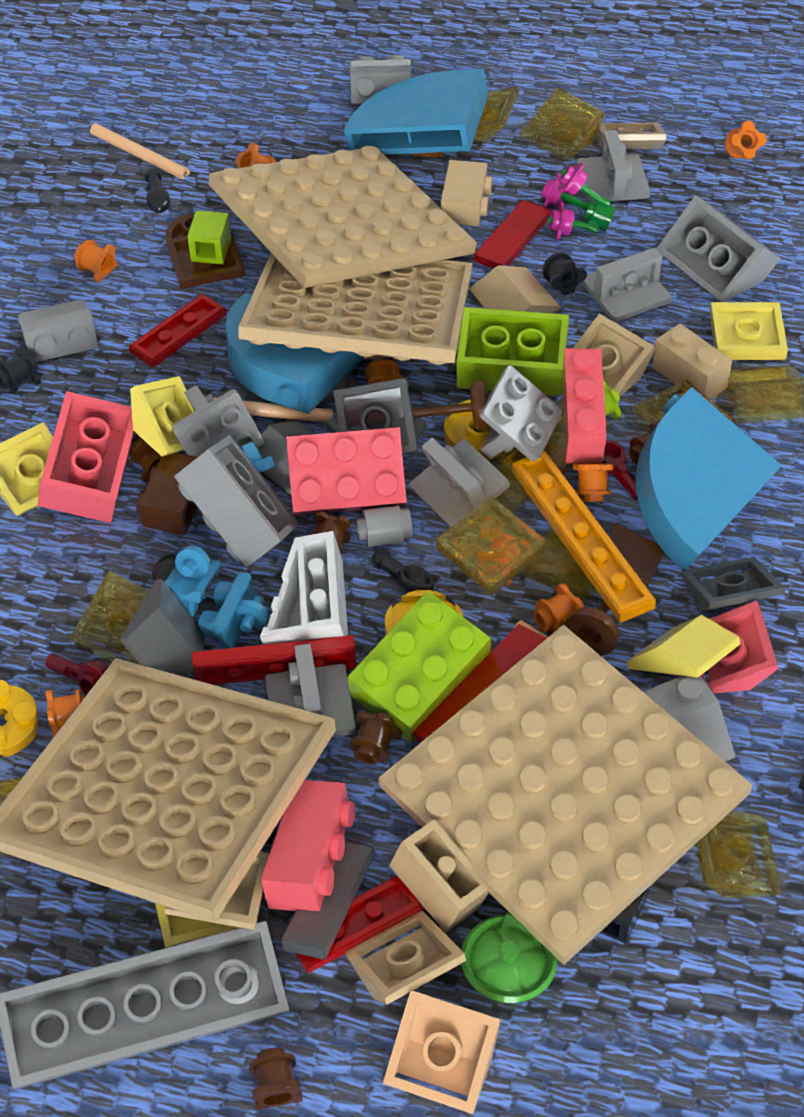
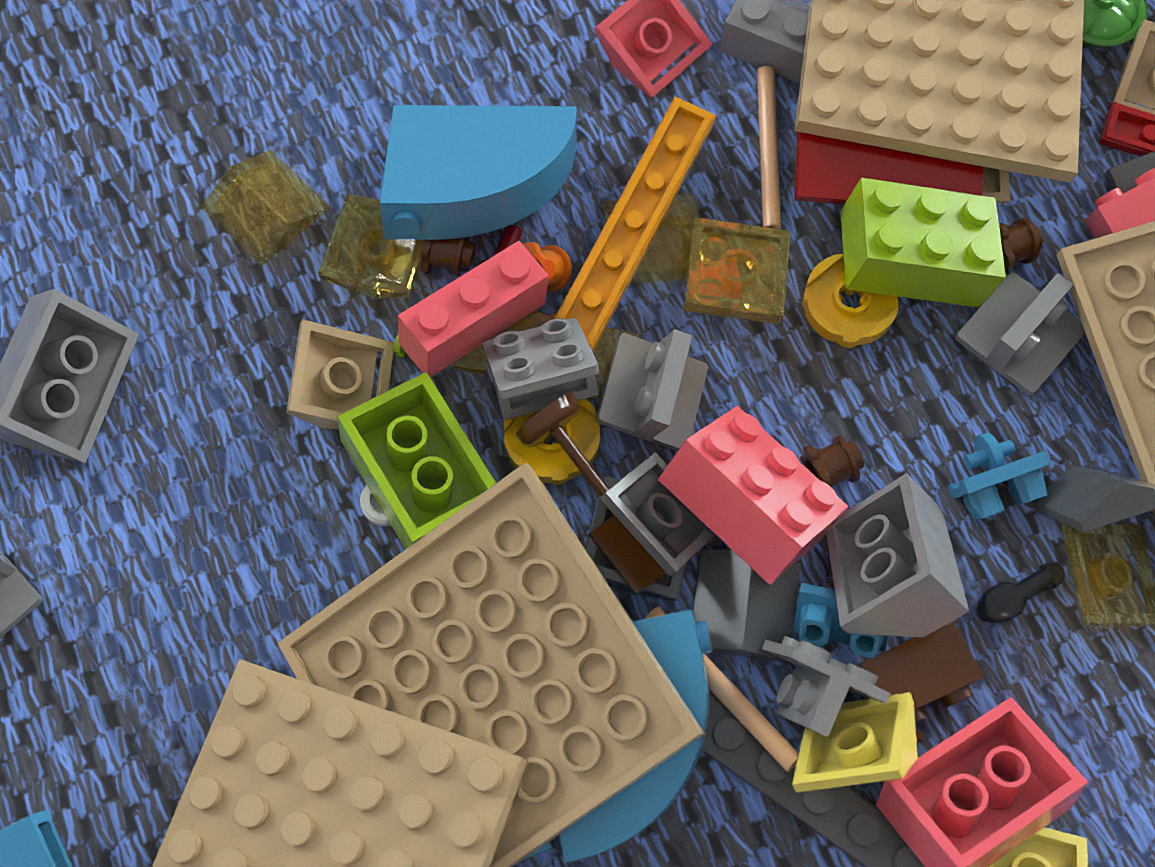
camera: 130 degrees left, 20 degrees up
(192, 577) = (1016, 536): dark azure hips -> none
(257, 661) = (1018, 392): red tile -> none
(311, 593) = (933, 401): white wedge -> none
(384, 526) = (774, 417): light grey brick -> none
(409, 576) = (801, 357): black piece -> none
(439, 875) = (1101, 84): tan brick -> none
(466, 191) = (137, 755): tan brick -> none
(512, 235) = (176, 643): red tile -> none
(512, 290) = (296, 559): tan slope -> none
(552, 613) = (735, 195): orange brick -> none
(563, 273) = (221, 523): black brick -> none
(572, 180) = (63, 588): plant -> none
(593, 624) = (601, 182): reddish brown piece -> none
(628, 285) = (191, 440): light grey bracket -> none
(686, 356) = (287, 281): tan brick -> none
(686, 649) = (701, 55): light yellow slope -> none
(731, 587) = (576, 71): dark grey slope -> none
(749, 330) = (180, 270): light yellow plate -> none

